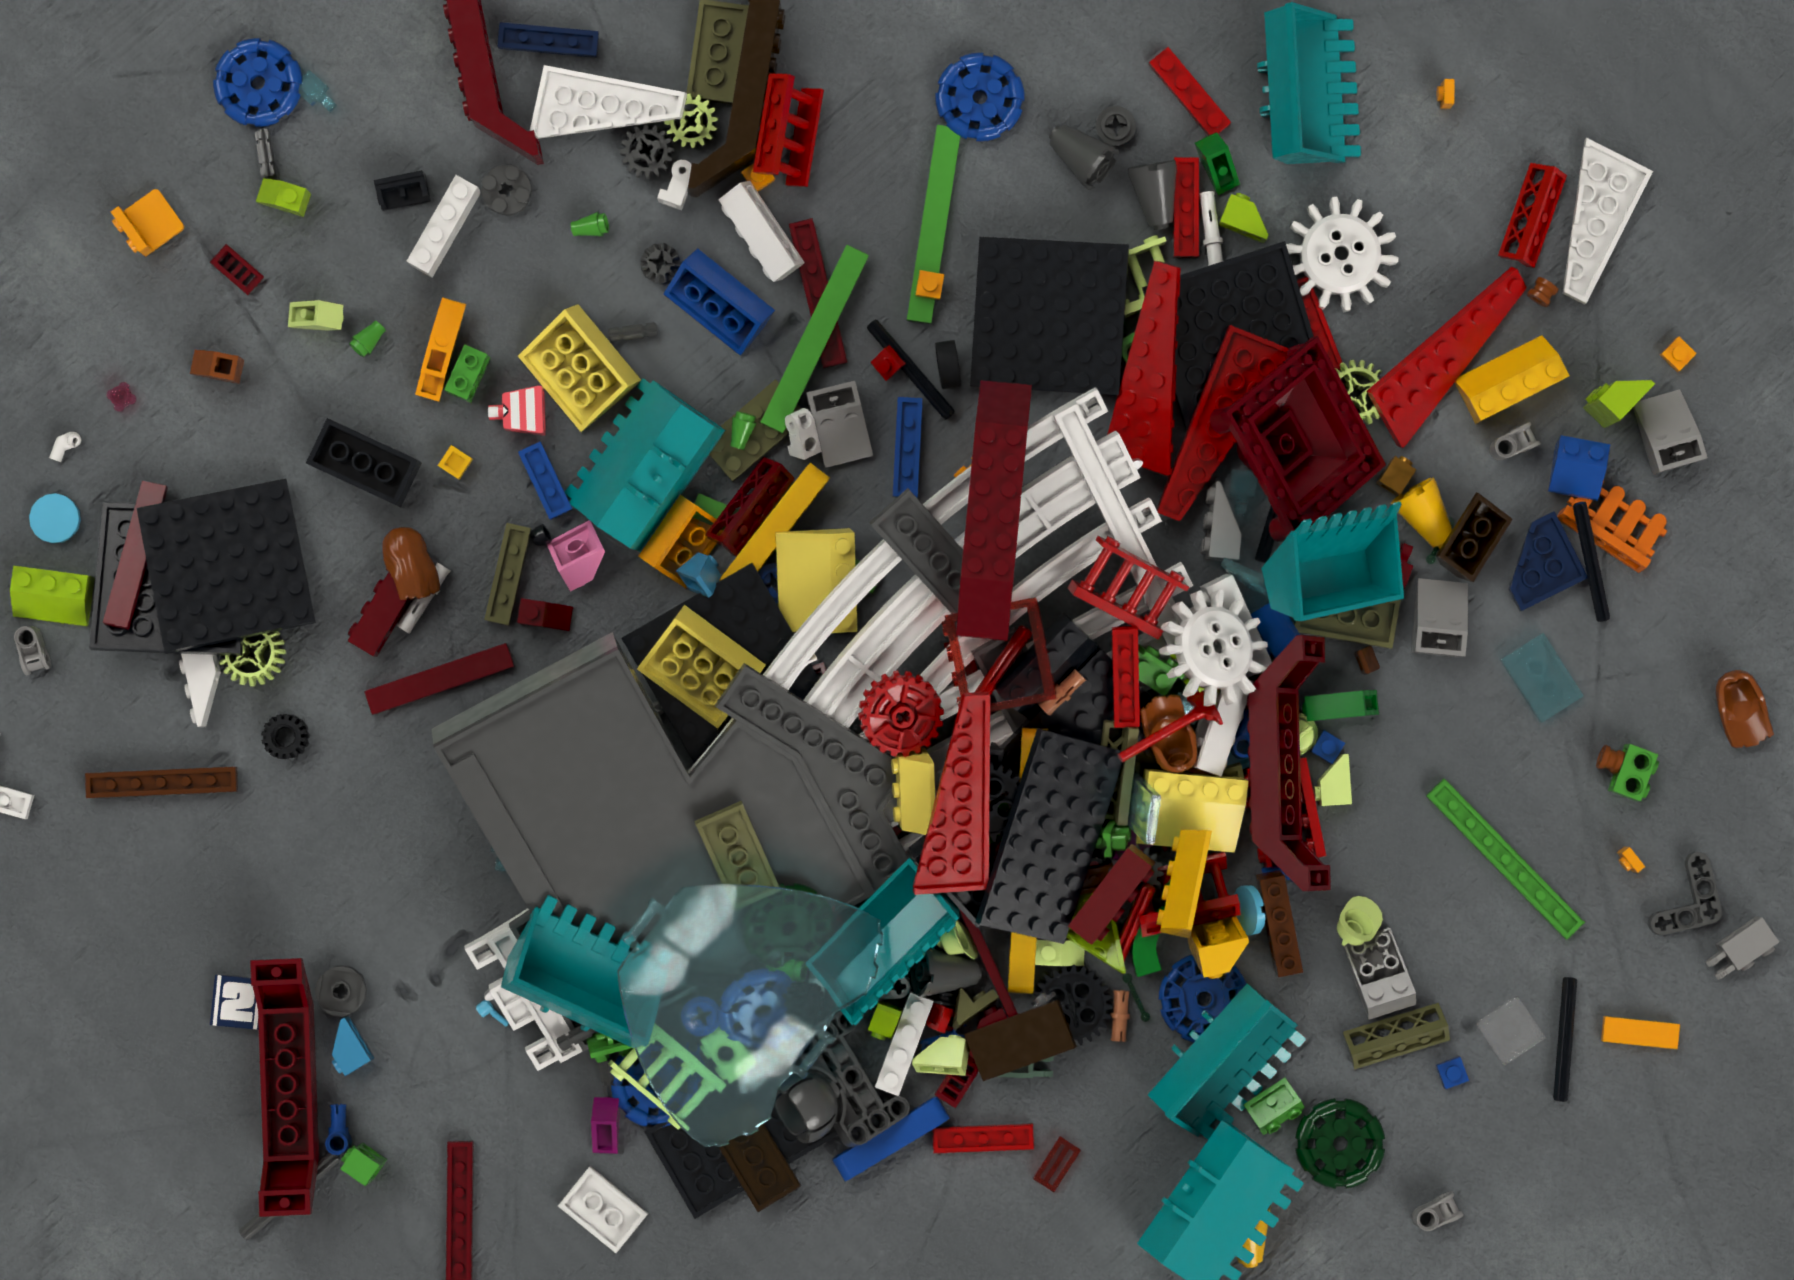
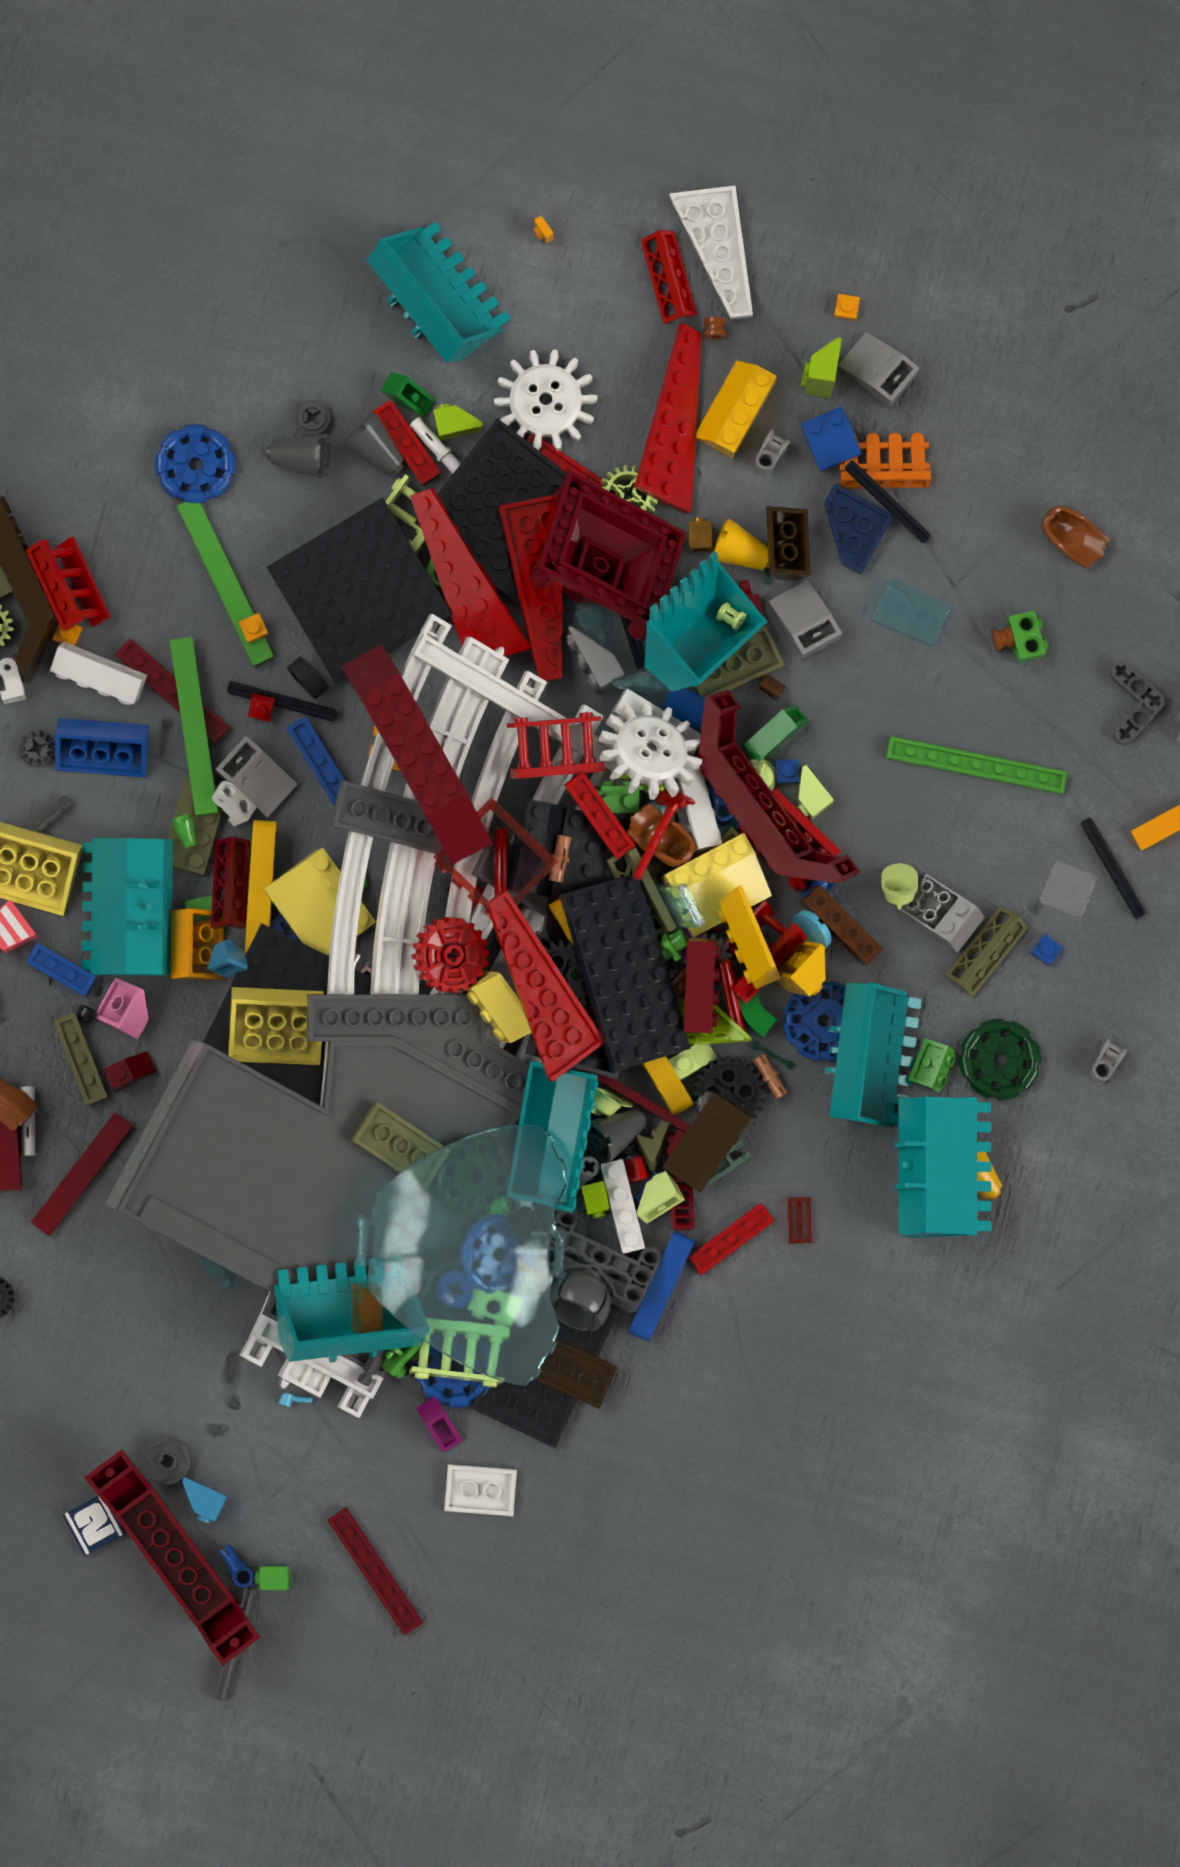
camera: 40 degrees left, 5 degrees down
(603, 986) = (366, 1310): none -> clear orange brick
(1189, 92) = (350, 356): red plate -> none
(1380, 576) = (737, 620): none -> yellowish green bush
(1630, 860) = (1068, 703): light orange plate -> none

